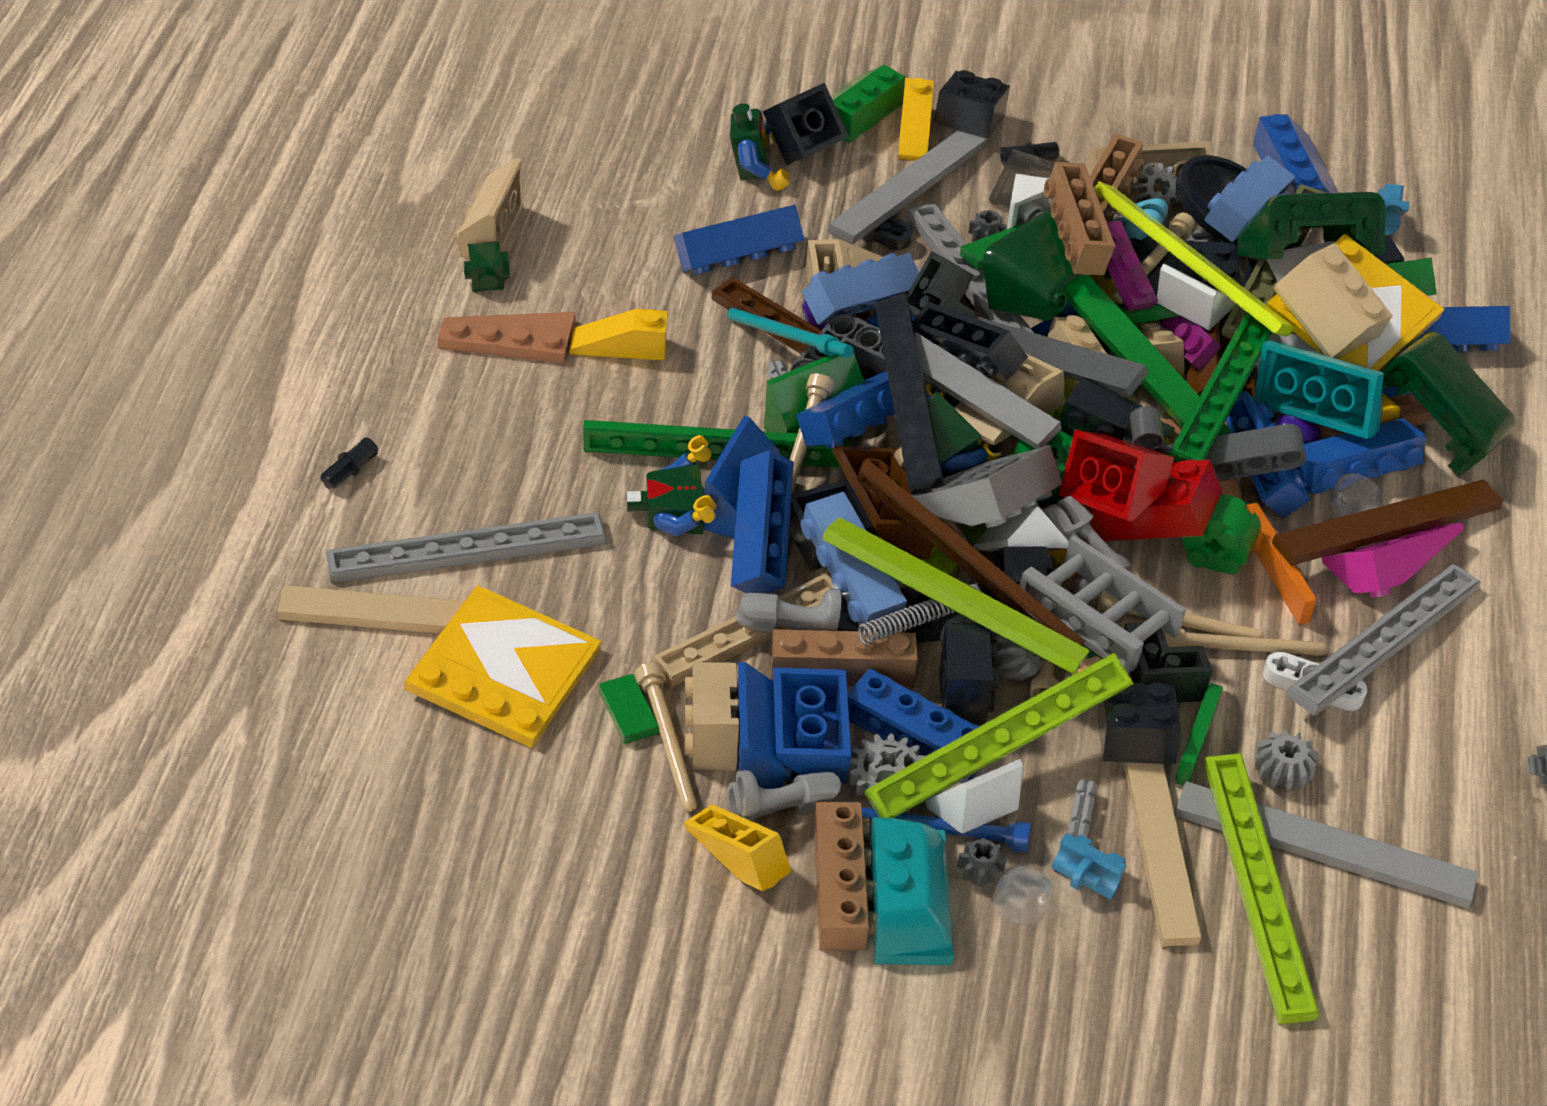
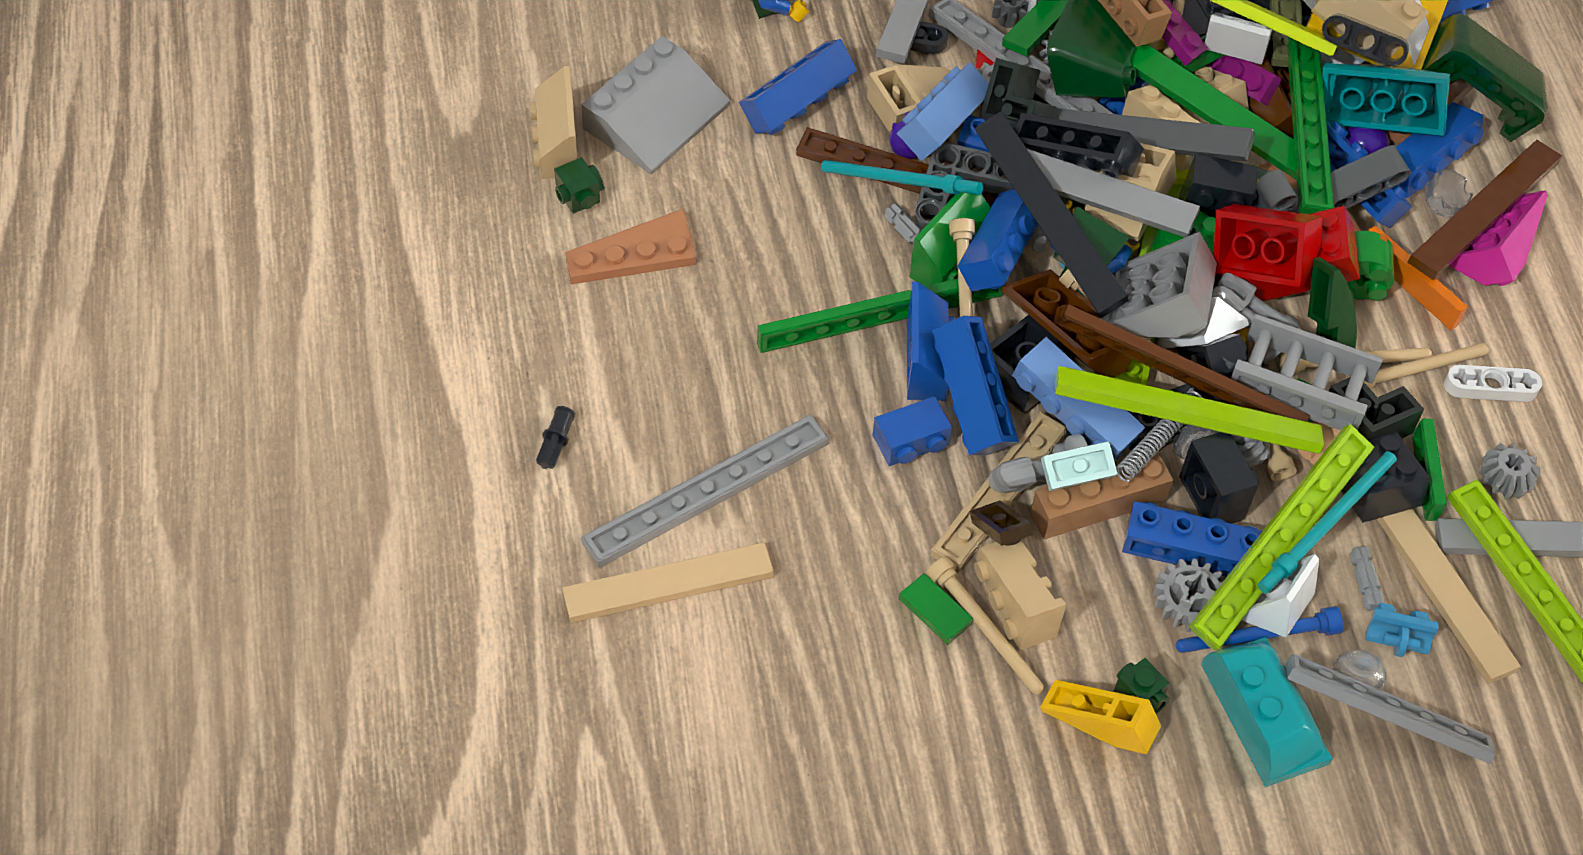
camera: 20 degrees left, 10 degrees up
(503, 666) = (805, 604): yellow plate -> none
(594, 220) = (653, 105): none -> light grey slope
(624, 335) = (741, 221): yellow slope -> none
(675, 494) = (873, 376): torso -> none
(687, 552) = (912, 431): none -> blue brick
(723, 648) = (1001, 523): none -> dark brown plate
(754, 802) = (1096, 669): light grey piece -> none
(757, 729) = (1084, 624): blue slope -> none
(794, 829) = (1143, 682): none -> dark green brick
(812, 720) = (1114, 571): blue slope -> none
(821, 614) = (1079, 466): none -> light aqua plate
(841, 876) = (1205, 716): medium nougat brick -> none
(981, 862) = (1316, 651): dark grey gear -> none
(987, 760) = (1287, 563): none -> teal bar
(1034, 926) = (1390, 708): none -> light grey tile
(1163, 553) = (1332, 304): none -> dark green slope
(1300, 321) = (1381, 39): none -> black beam
(1382, 639) = (1531, 326): light grey tile -> none

